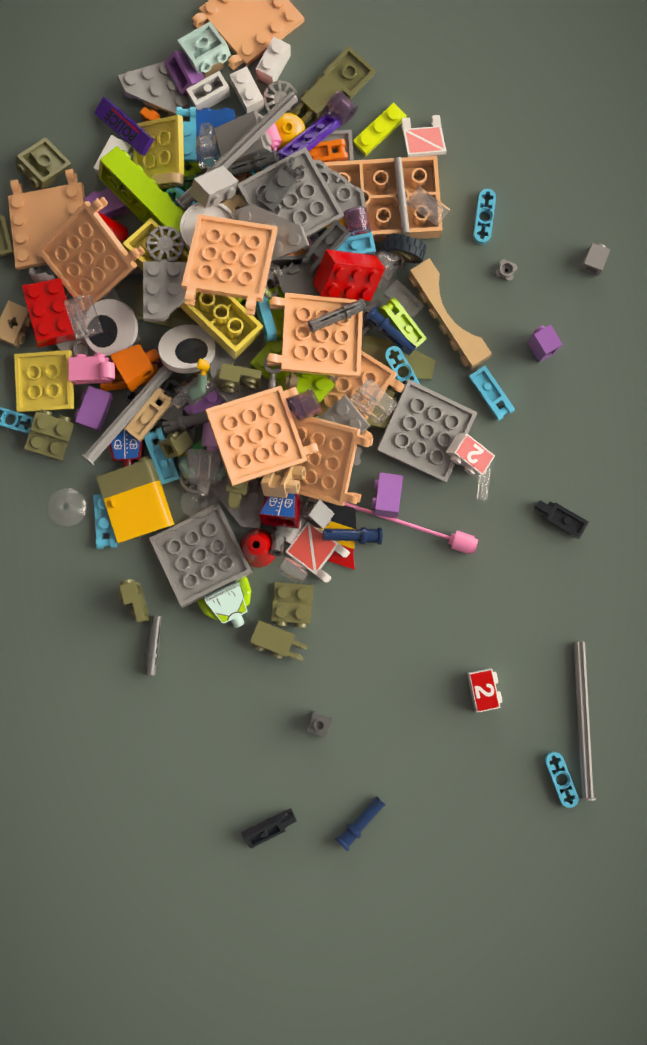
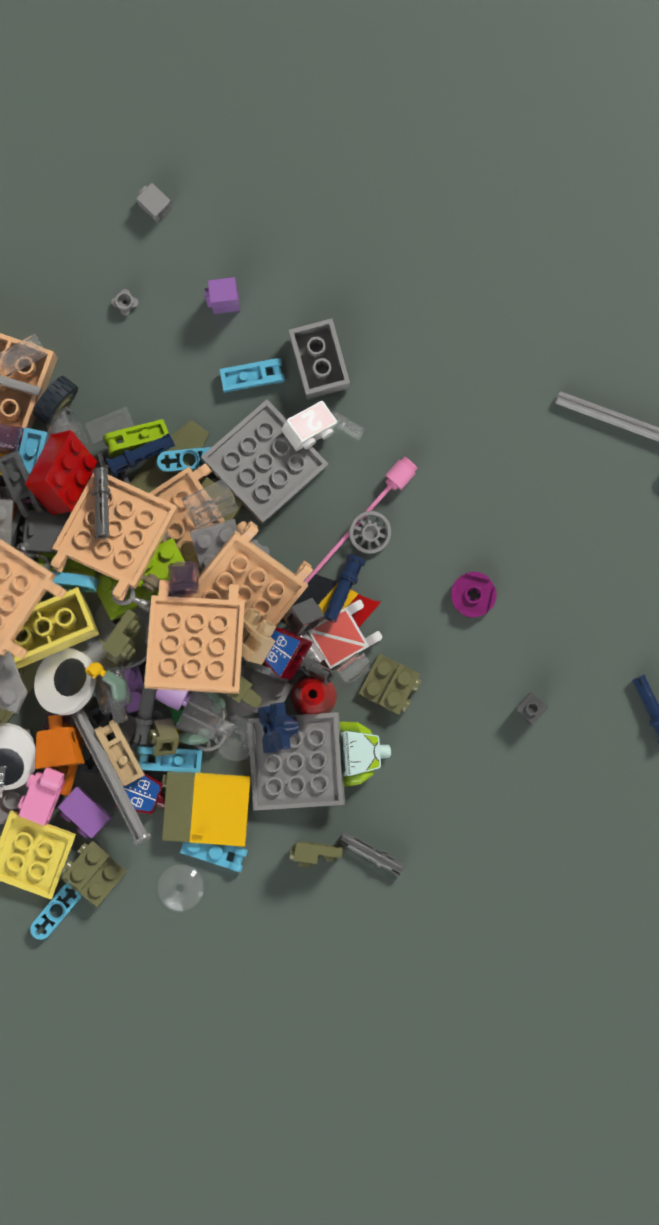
camera: 60 degrees left, 0 degrees up
(219, 528) = (277, 727): none -> dark blue plant
(269, 828) = (619, 809): black hinge -> none
(276, 640) = (421, 718): olive hinge -> none
(388, 495) = (317, 532): medium lavender brick -> none
(400, 647) = (480, 605): none -> magenta plate
(406, 537) = (369, 532): none -> light grey wheel
(470, 347) = (193, 376): tan arch -> none
(484, 690) = (566, 518): red brick -> none
(491, 204) = (38, 297): medium azure beam -> none
(526, 439) = (319, 359): none -> light grey brick
(562, 518) = (419, 358): black hinge -> none

